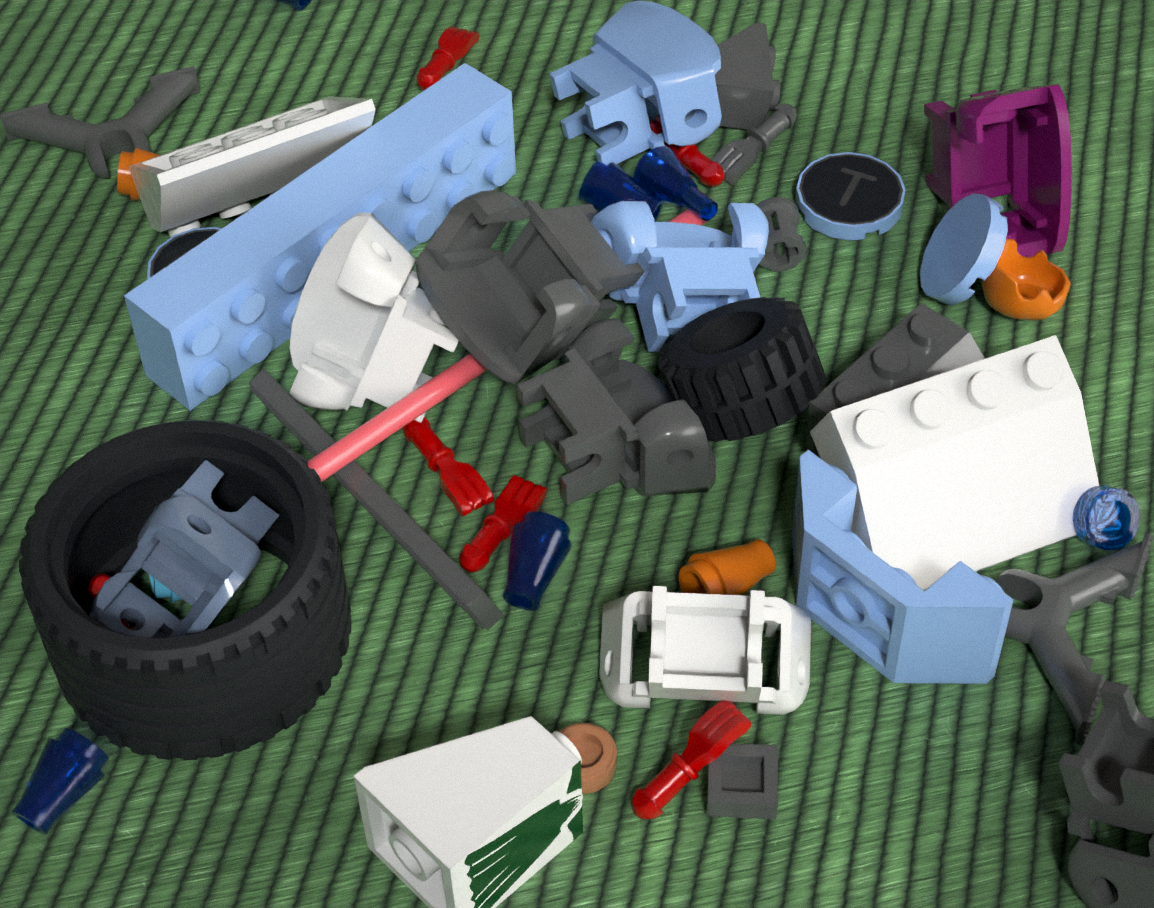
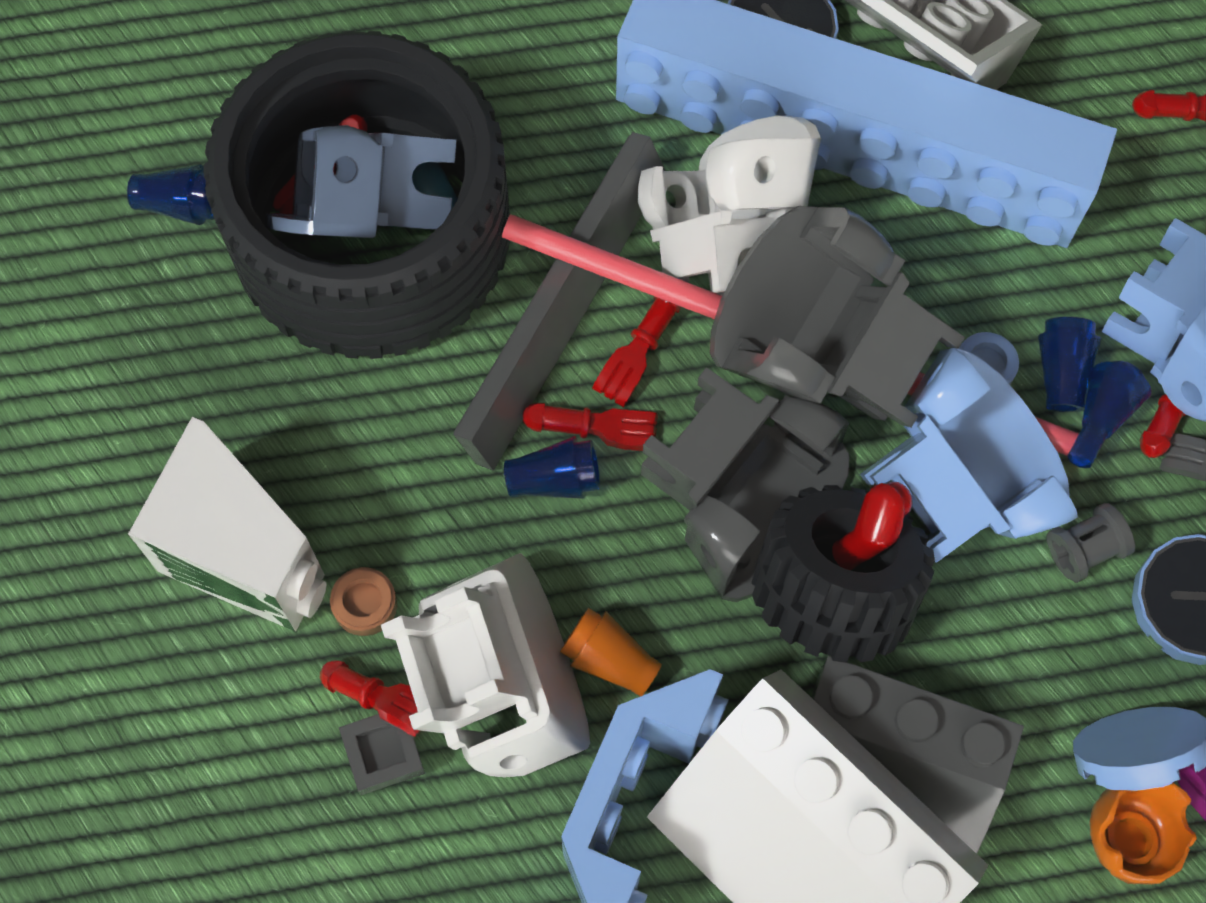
camera: 65 degrees right, 20 degrees up
(717, 315) = (876, 526): none -> red arm

